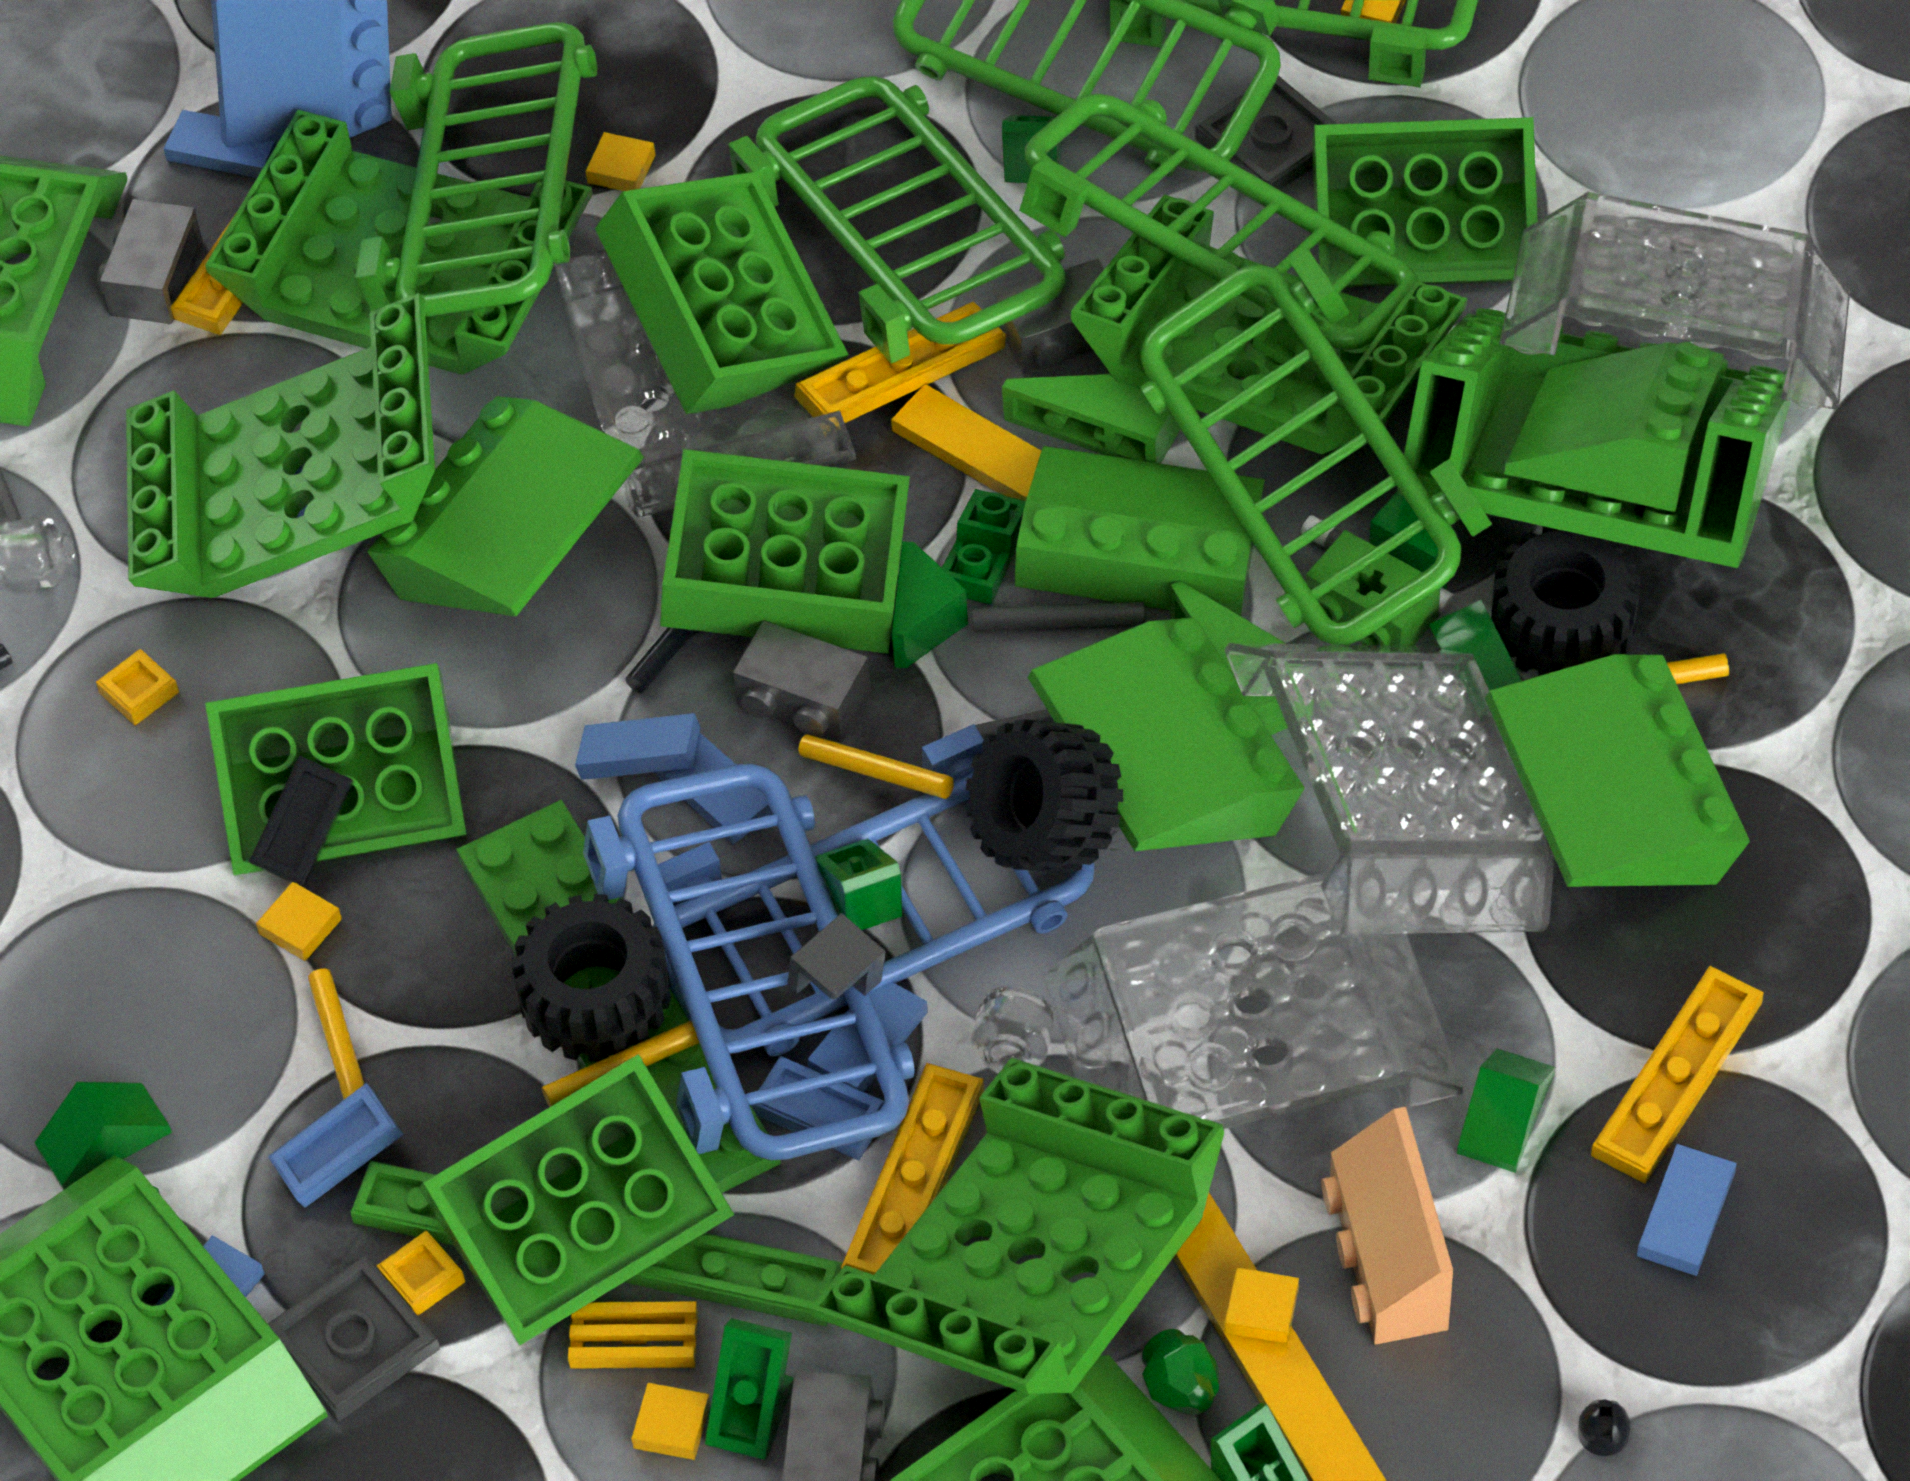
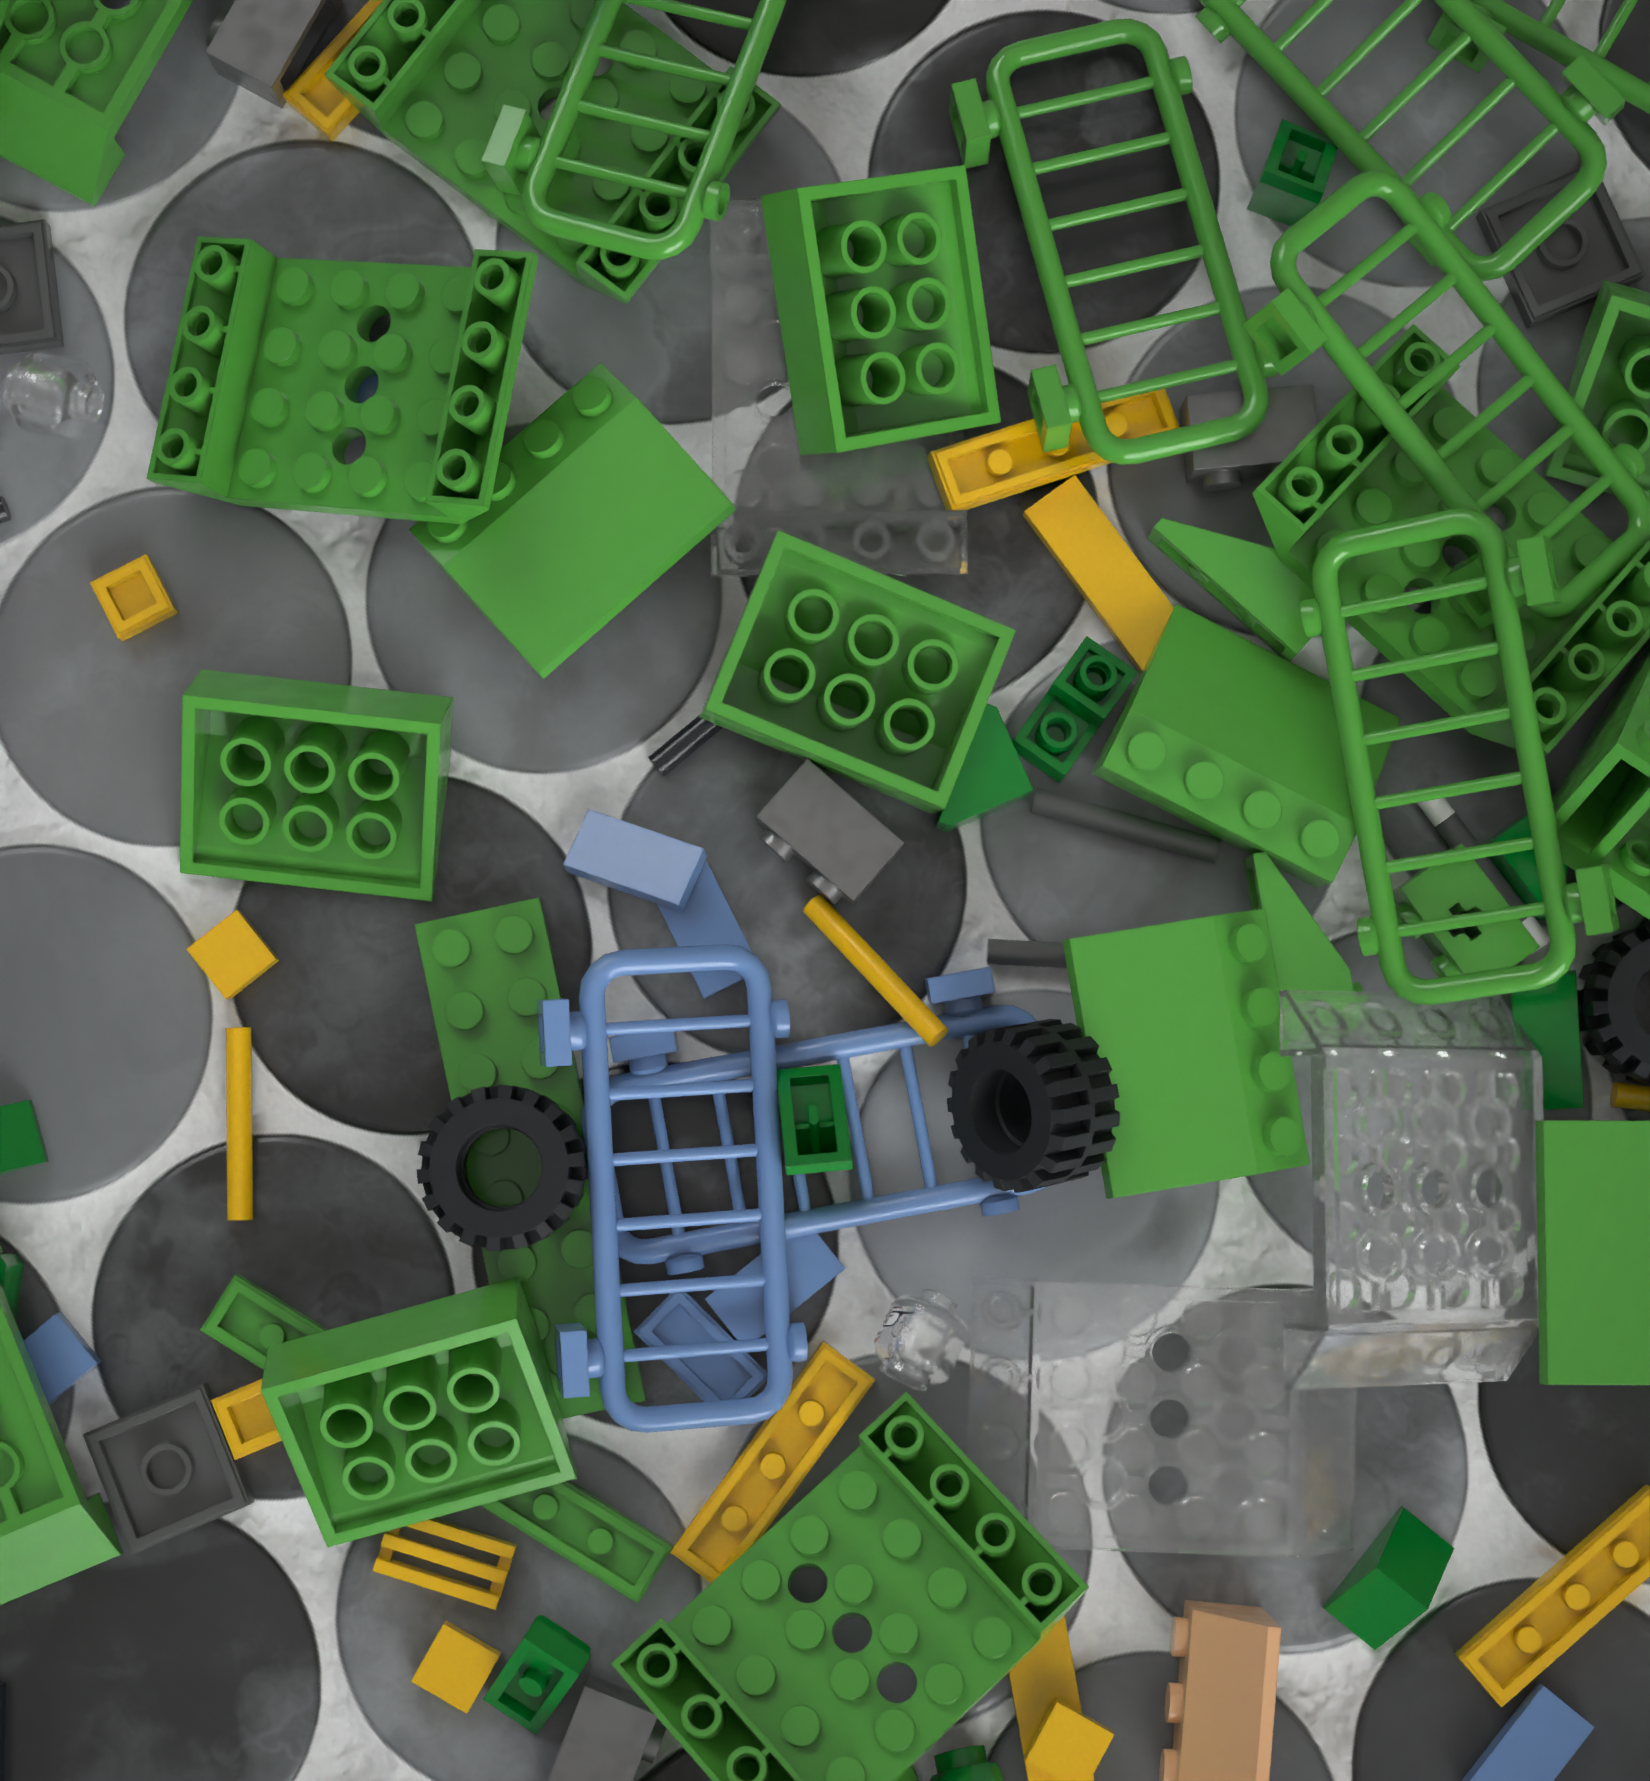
camera: 10 degrees right, 30 degrees up
(301, 821) = (260, 847): black tile -> none
(335, 1145) = (203, 1248): medium blue tile -> none
(620, 162) = (829, 47): yellow tile -> none
(650, 1051) = (507, 1262): yellow bar -> none
(837, 960) = (756, 1246): dark grey panel -> none

